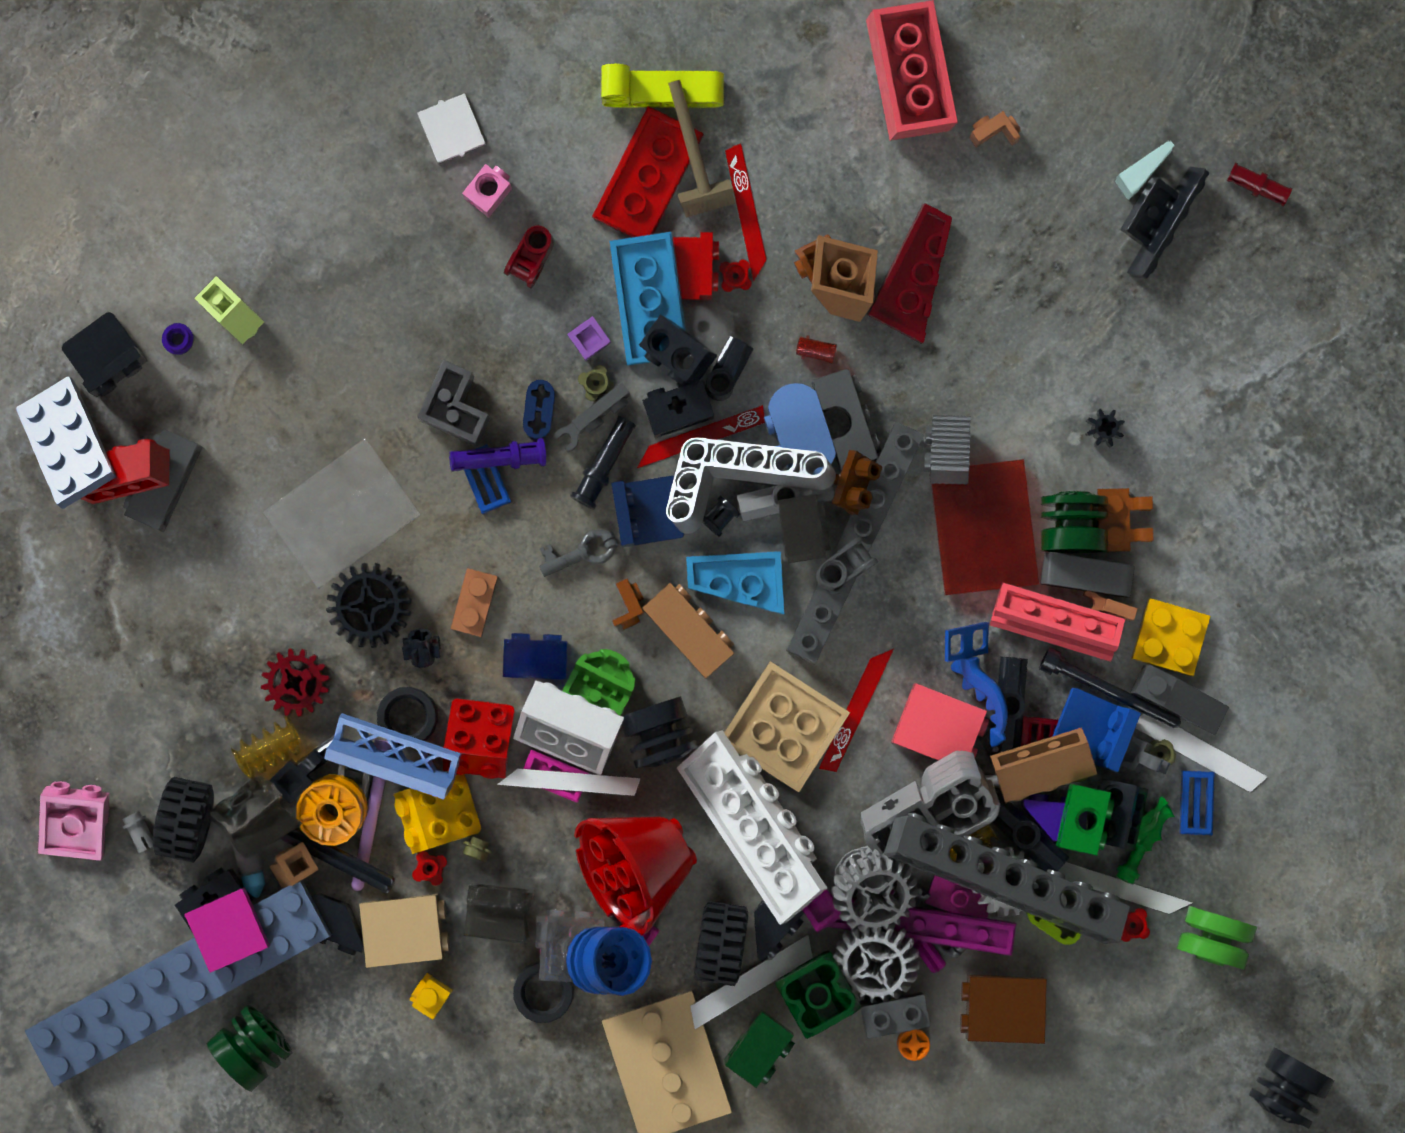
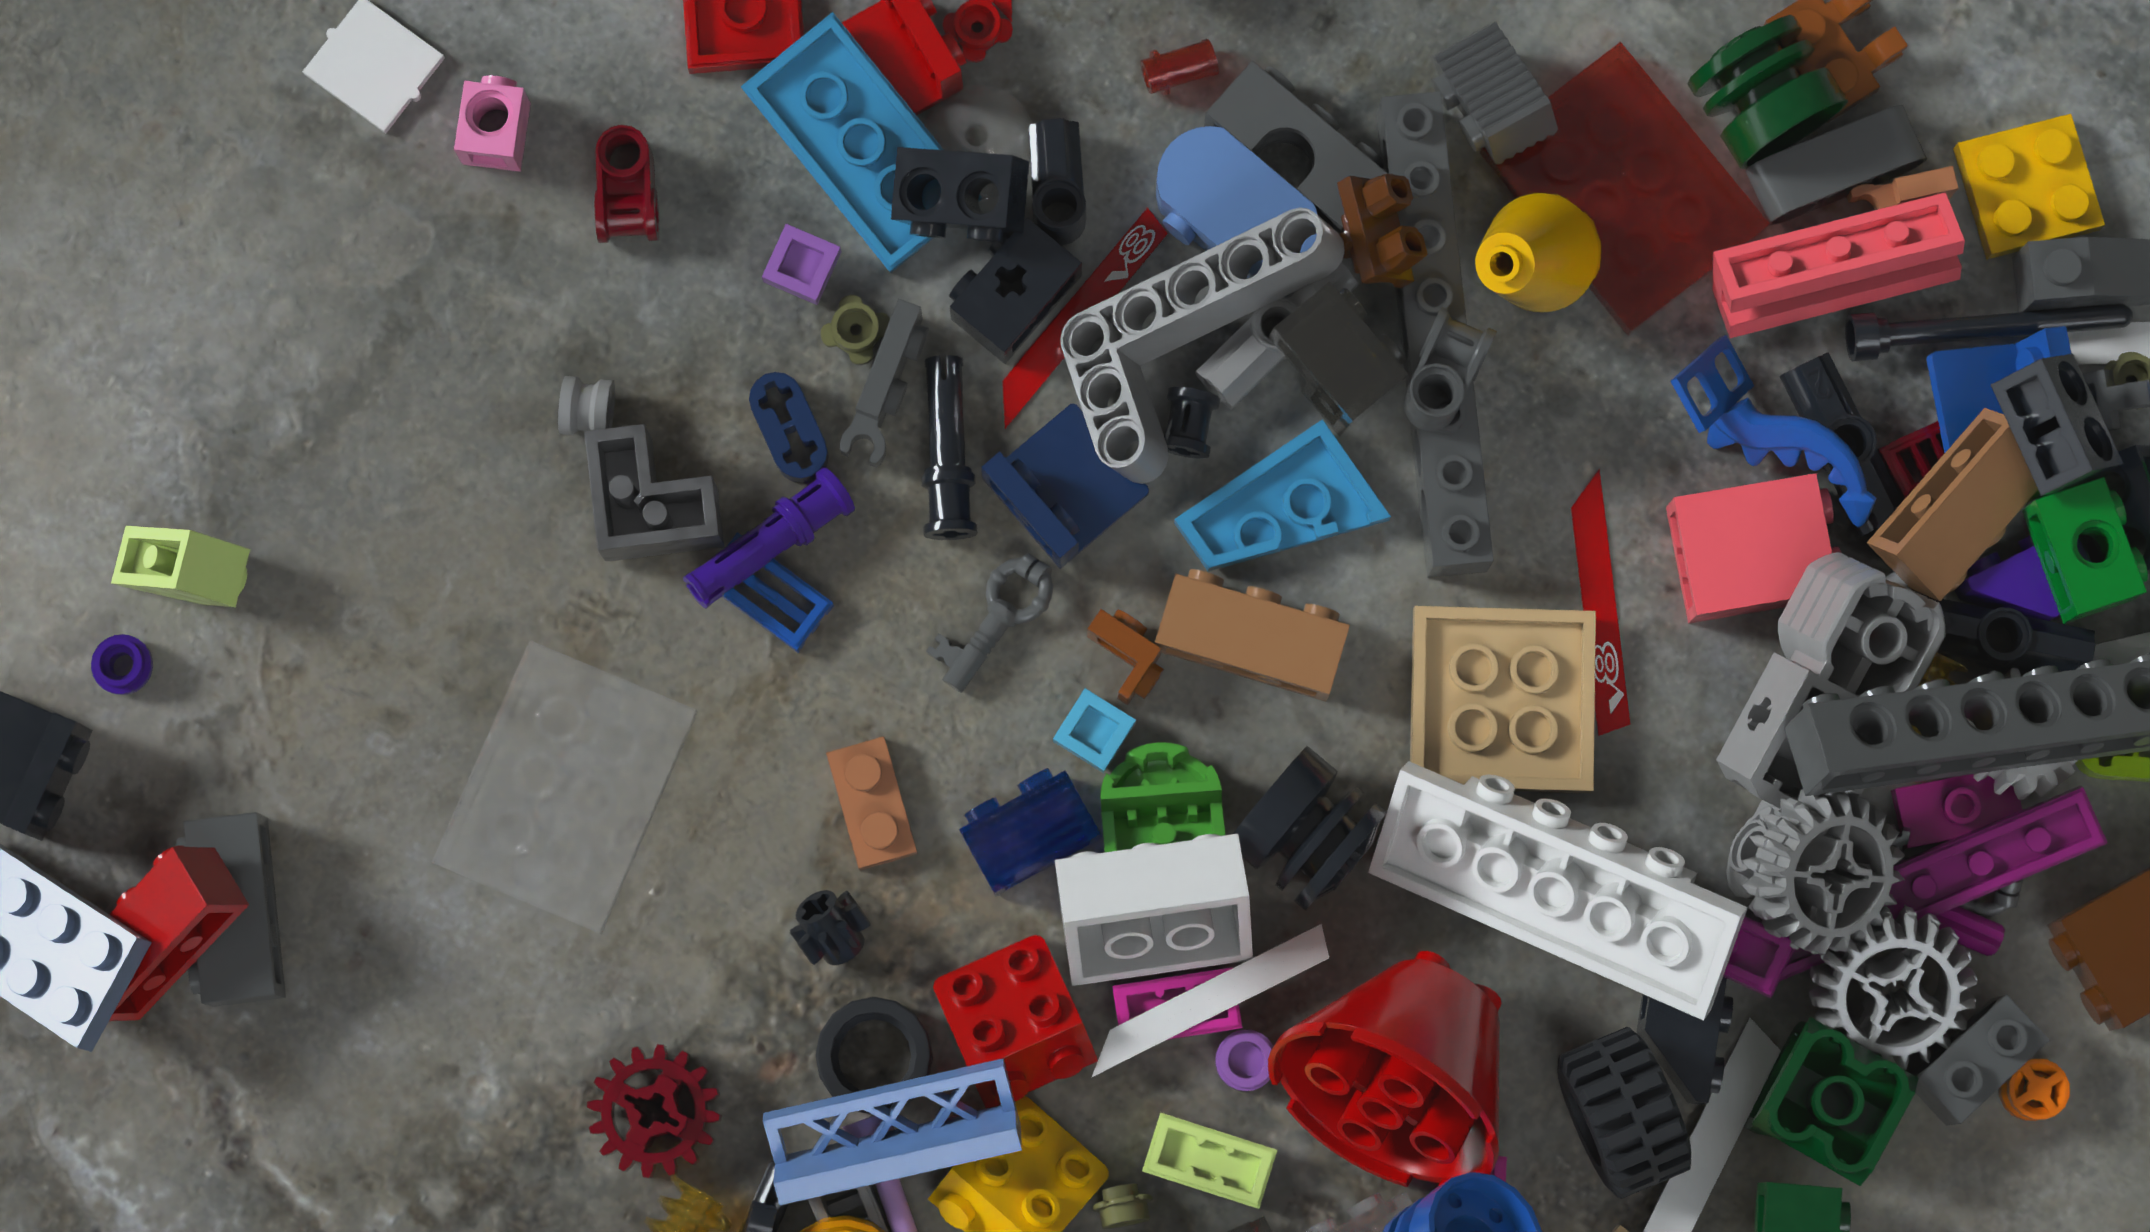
camera: 30 degrees left, 5 degrees down
(367, 590) = (677, 926): black gear -> none
(453, 346) = (585, 405): none -> light grey wheel
(527, 852) = (1209, 1160): none -> yellowish green plate
(569, 816) = (1244, 1060): none -> medium lavender tile
(592, 630) = (1094, 730): none -> medium azure plate
(923, 534) = (1539, 253): none -> yellow cone
(1103, 756) = (2056, 424): none -> black brick

